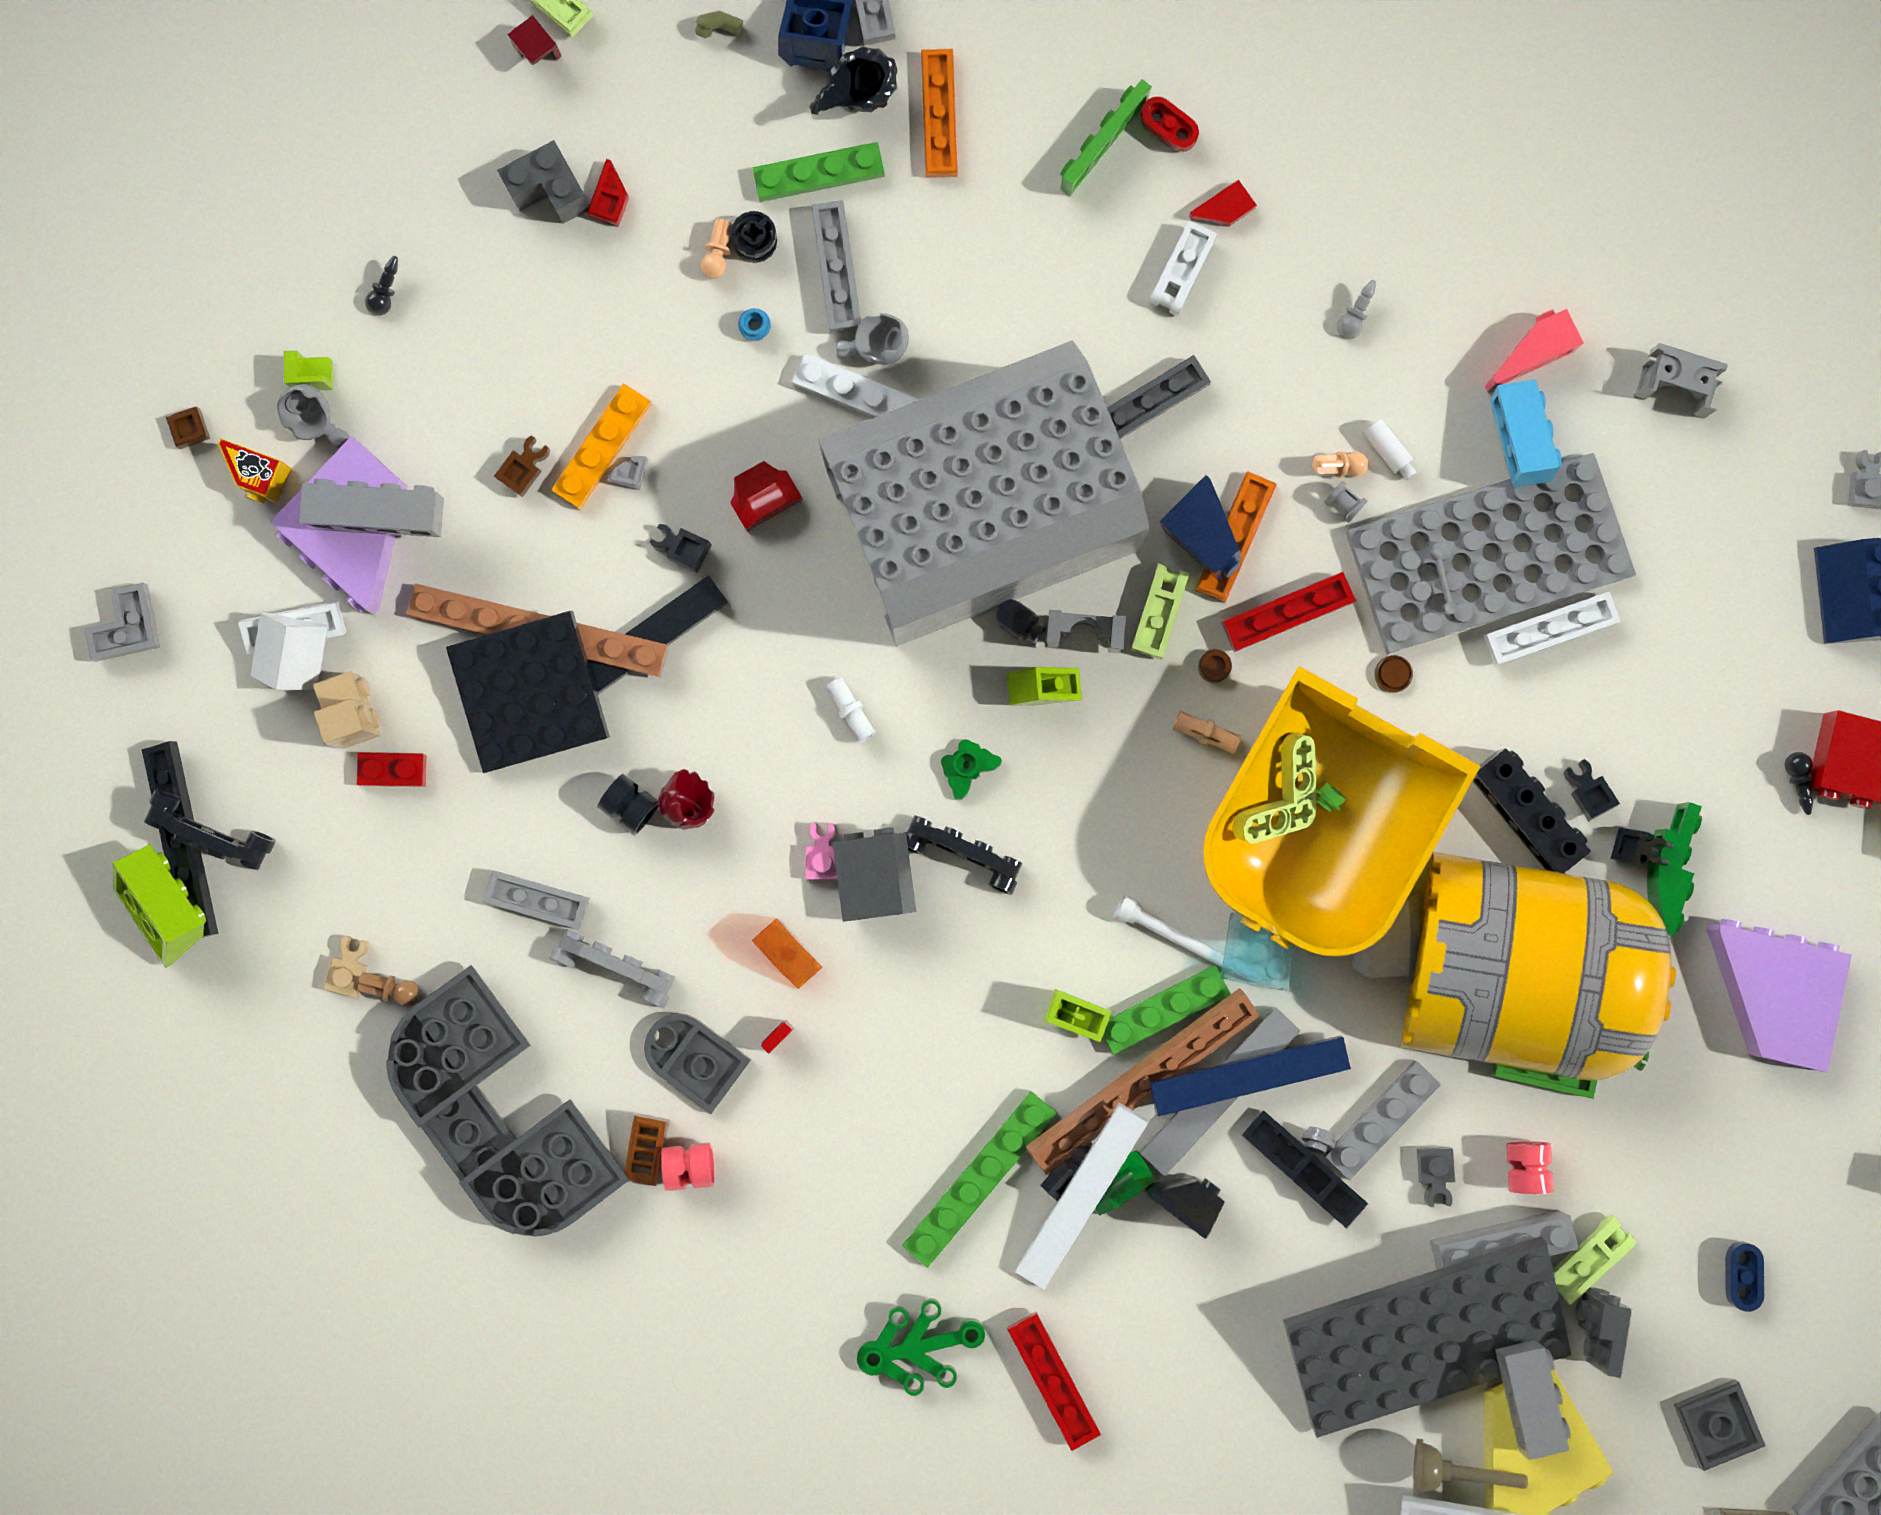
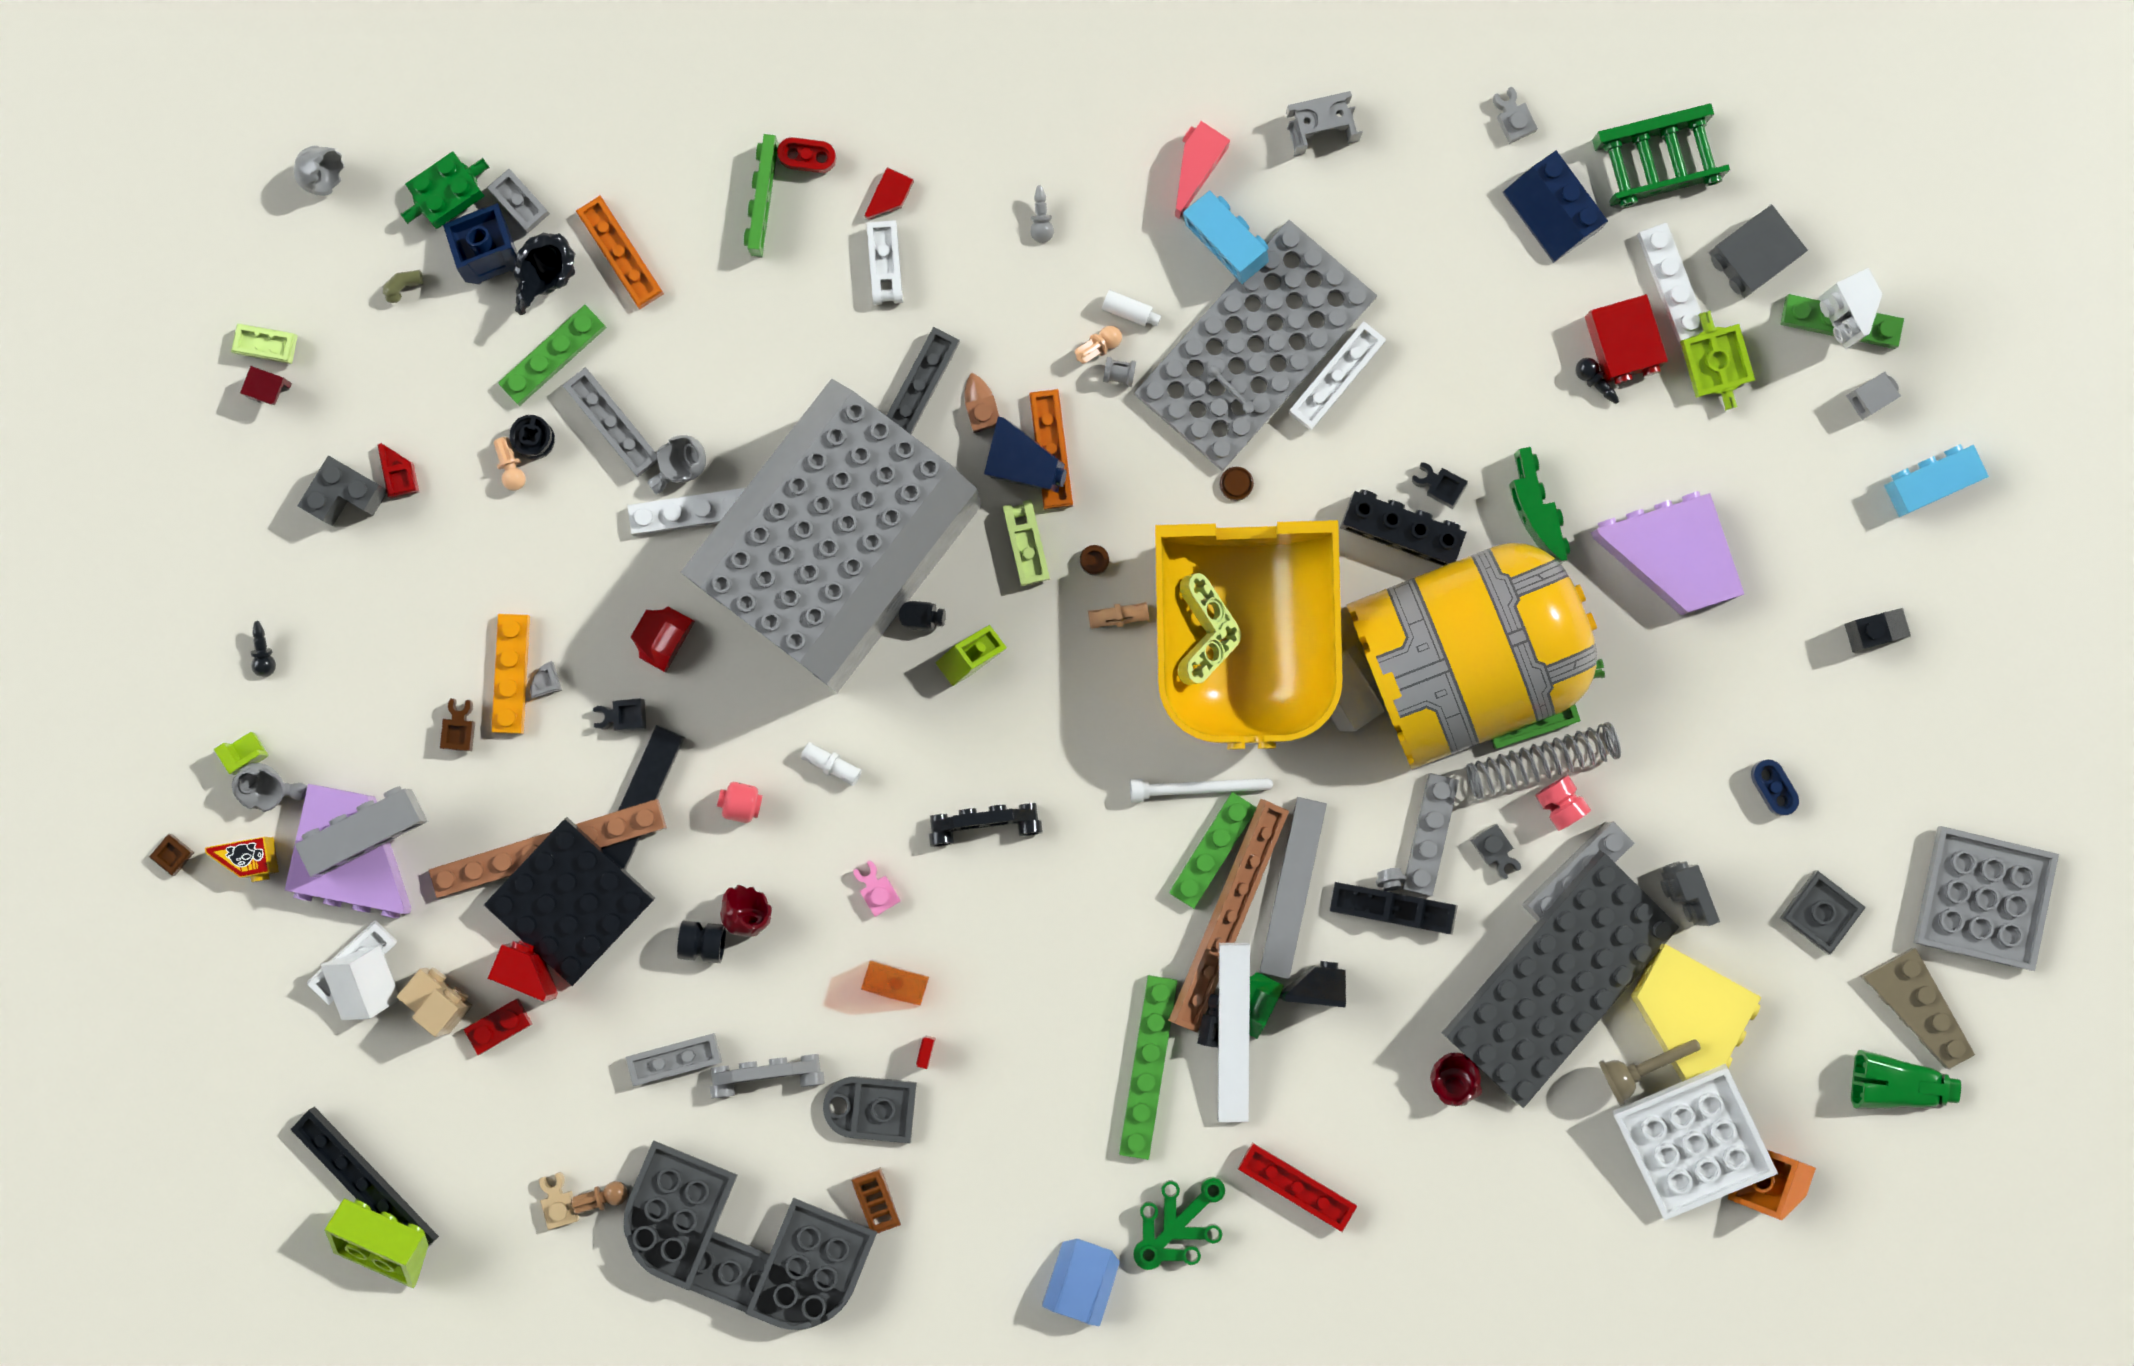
camera: 30 degrees left, 0 degrees up
(133, 630) = (225, 1042): light grey plate -> none
(219, 845) = (397, 1166): black plate -> none
(445, 731) = (523, 971): none -> red slope
(687, 1166) = (916, 1194): coral wheel -> none
(743, 694) = (740, 802): none -> coral head
(754, 315) = (565, 502): dark azure plate -> none
(793, 1345) = (1081, 1281): none -> medium blue slope
(874, 875) = (926, 881): dark grey brick -> none
(960, 777) = (948, 765): green animal -> none
(1077, 1015) = (1148, 895): lime slope -> none
(1106, 628) = (993, 581): light grey piece -> none
(1193, 455) = (980, 404): none -> nougat plate
(1249, 1075) = (1307, 861): dark blue tile -> none
(1254, 957) = (1259, 769): clear light blue plate -> none
(1268, 1371) = (1456, 1079): none -> dark red hair
(1288, 612) = (1126, 484): red plate -> none
(1330, 798) = (1243, 610): bright green plate -> none
(1454, 1108) = (1609, 736): none -> light grey piece
(1533, 1399) = (1666, 978): light grey brick -> none
(1592, 1259) = (1651, 845): yellowish green plate -> none
(1637, 847) = (1502, 507): black plate -> none

